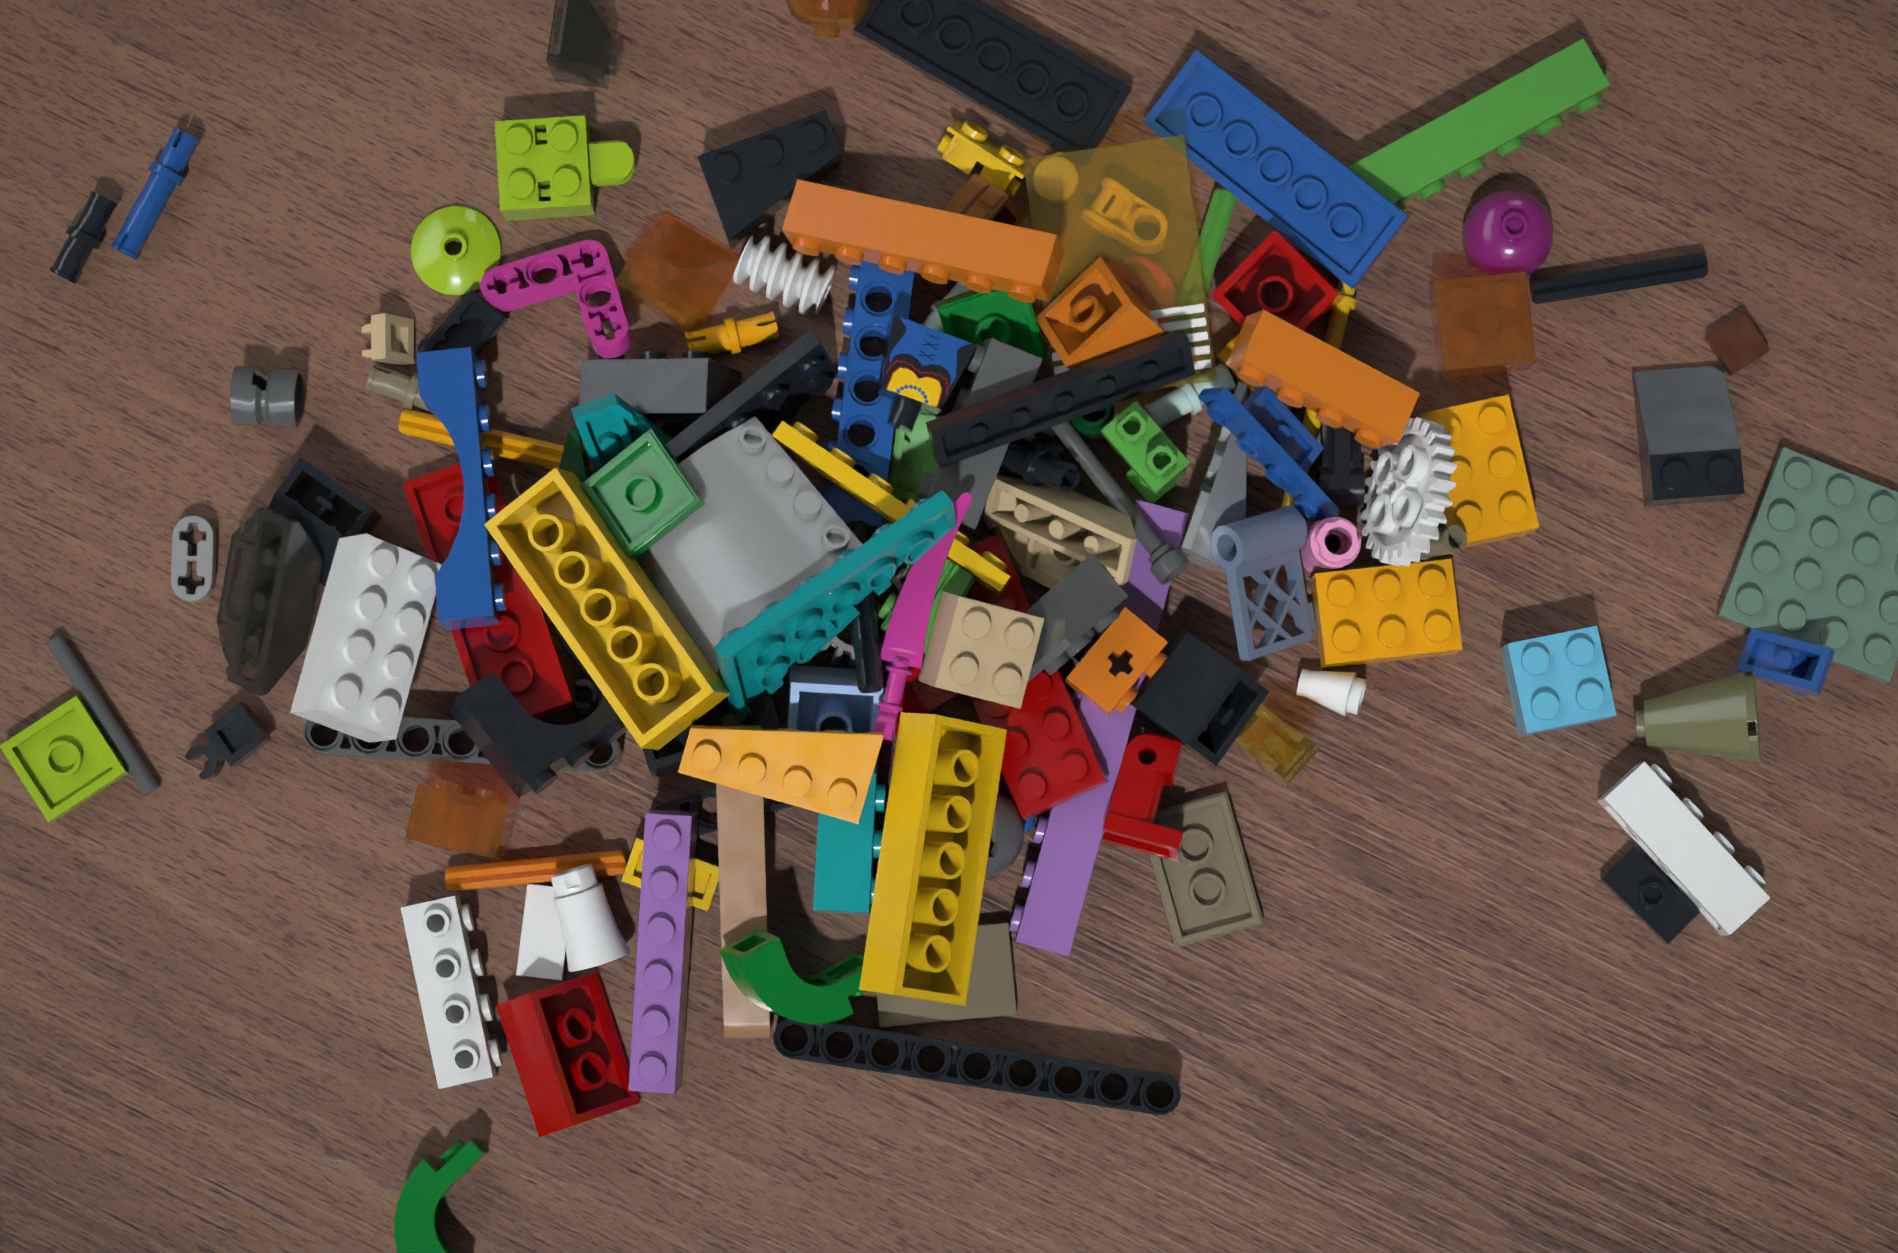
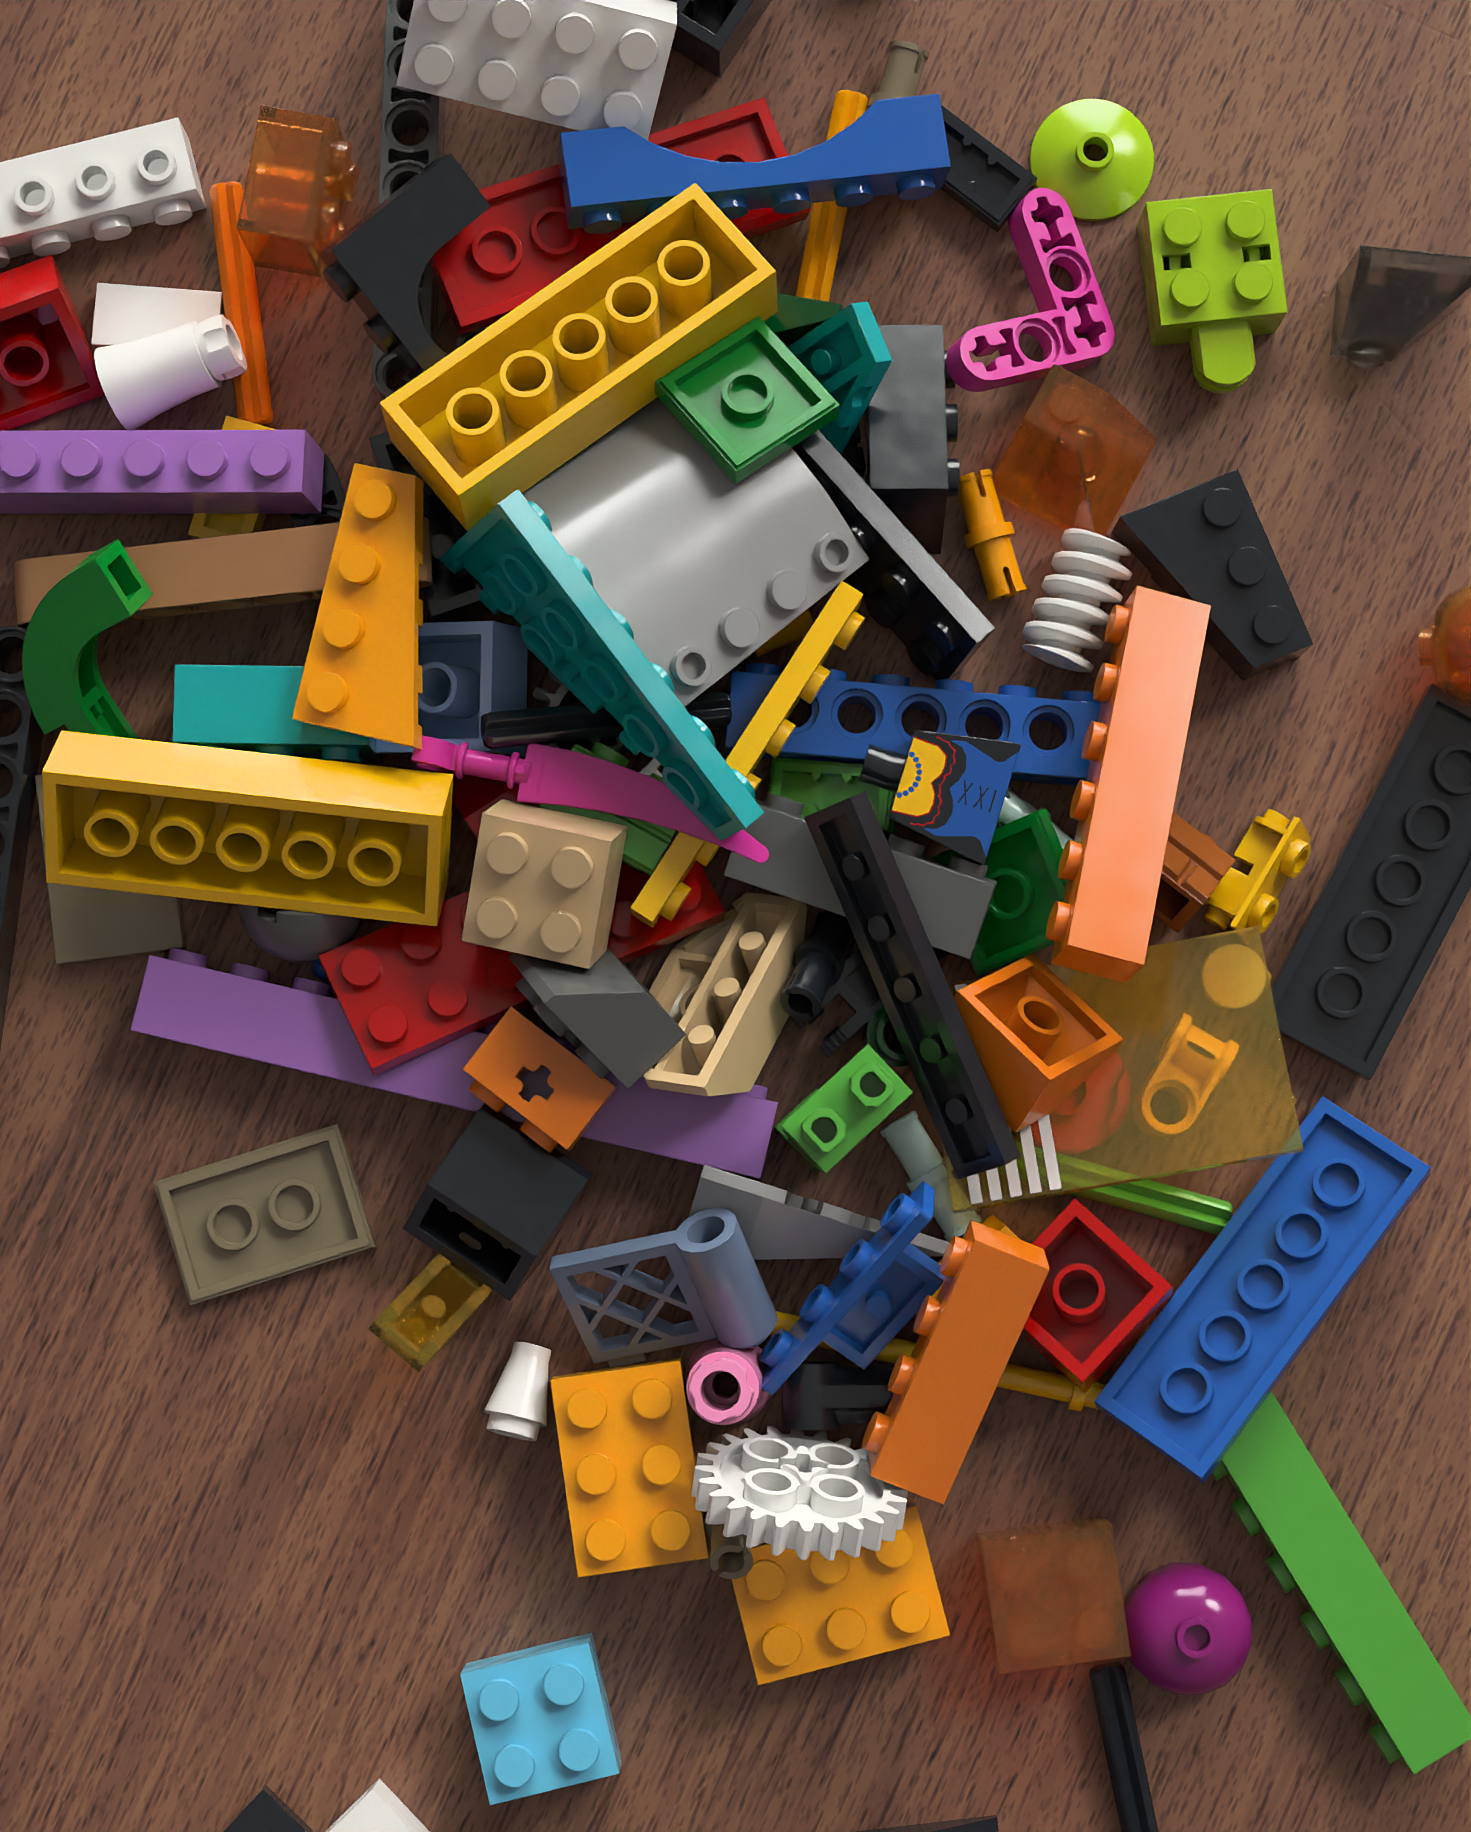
camera: 90 degrees right, 0 degrees up
(390, 339) = (963, 73): tan tile -> none
(1138, 797) = (361, 1122): red piece -> none
(1165, 560) = (689, 1145): dark grey piece -> none

